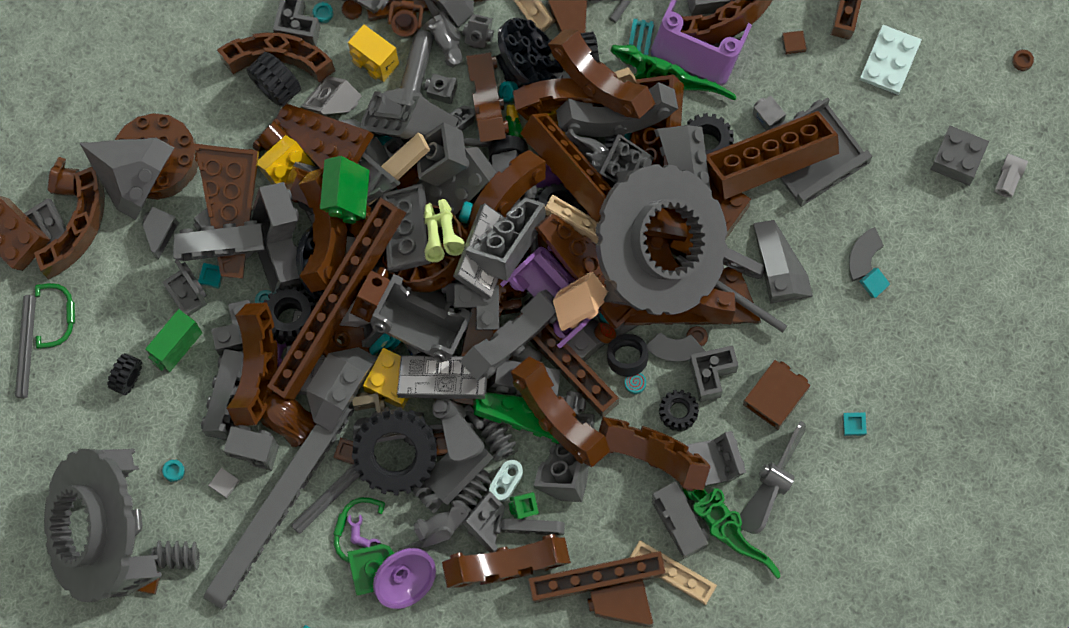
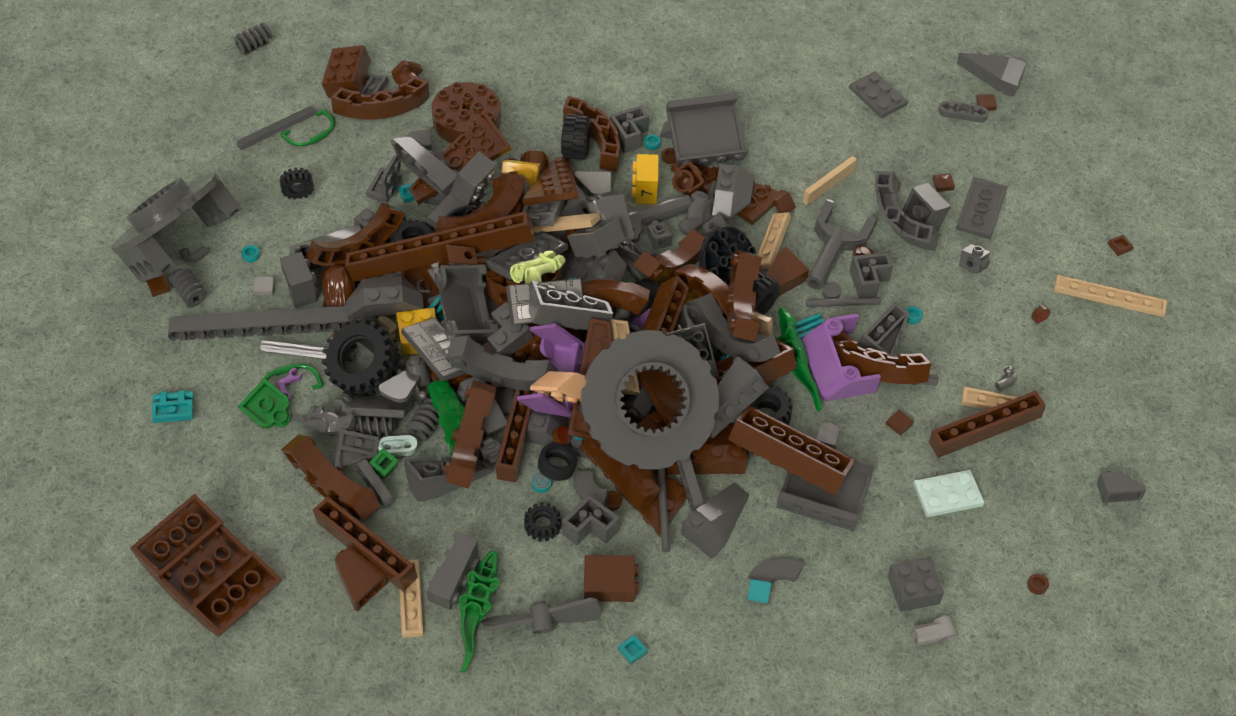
camera: 45 degrees right, 20 degrees down
(128, 169) = (440, 97): dark grey wedge -> none
(173, 341) = (340, 194): green brick -> none
(344, 189) = (520, 194): green brick -> none
(404, 578) = (260, 426): medium lavender dish -> none
(657, 450) = (495, 515): reddish brown brick -> none
(722, 456) = (519, 566): dark grey bracket -> none

